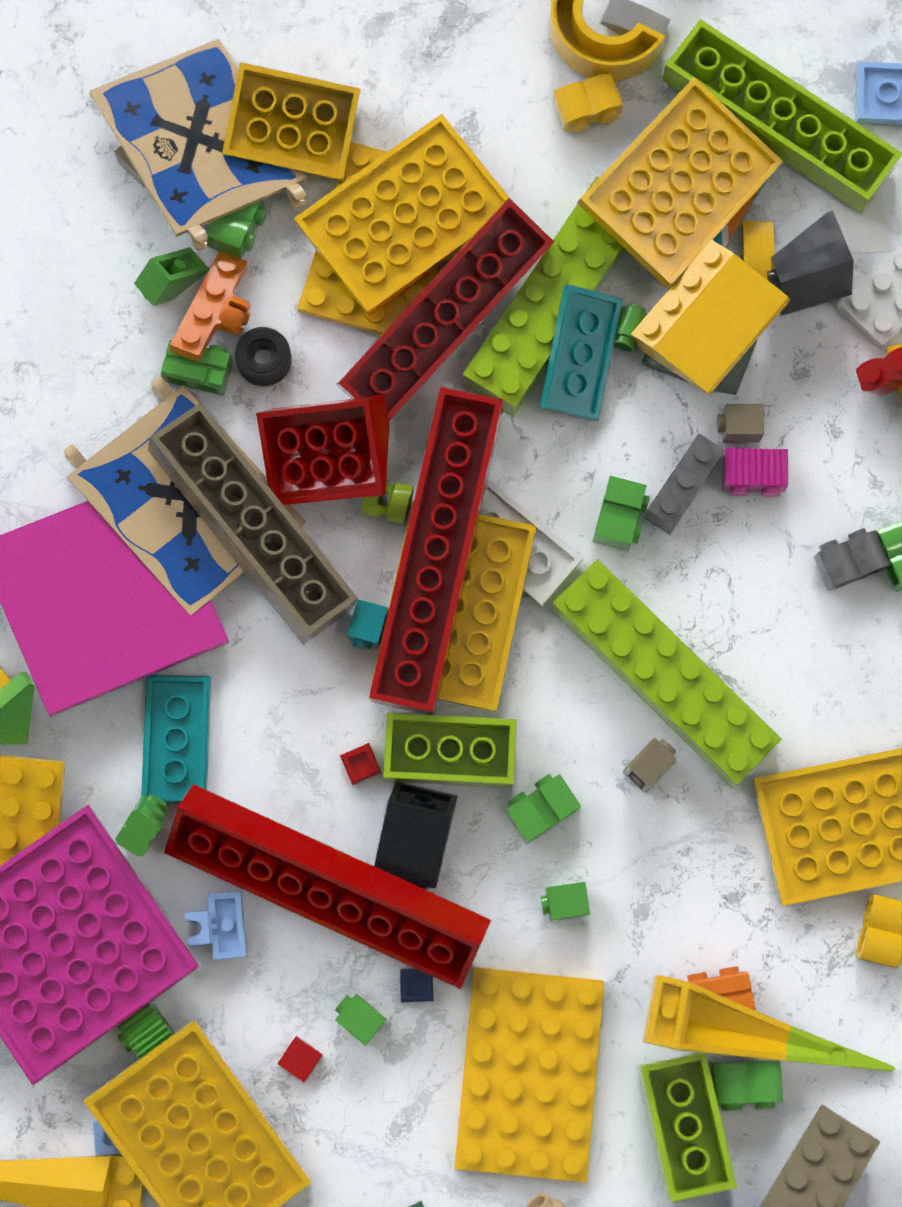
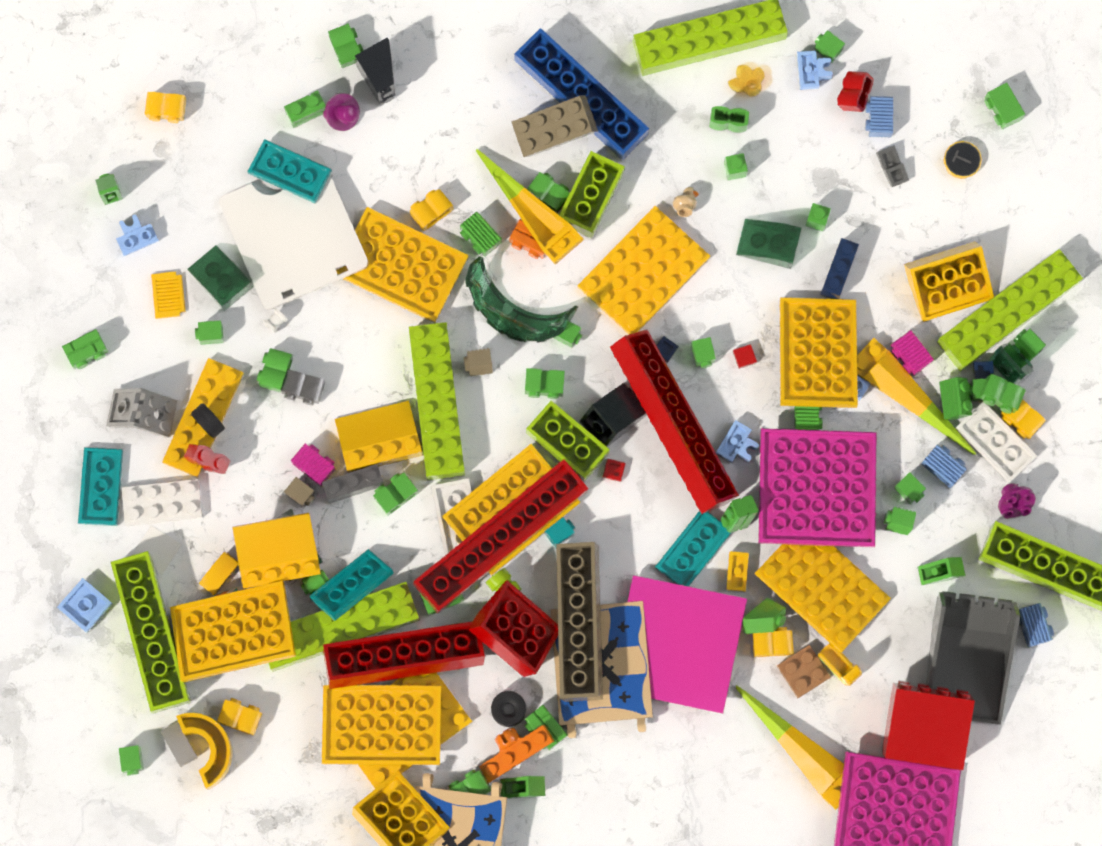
camera: 145 degrees left, 0 degrees up
(94, 751) = (737, 571): none -> yellow plate
(664, 863) = (508, 317): none -> clear green windscreen
(703, 570) = (378, 436): none -> yellow slope
(790, 948) = (480, 234): none -> bright green brick
(813, 266) = (203, 539): black slope -> none

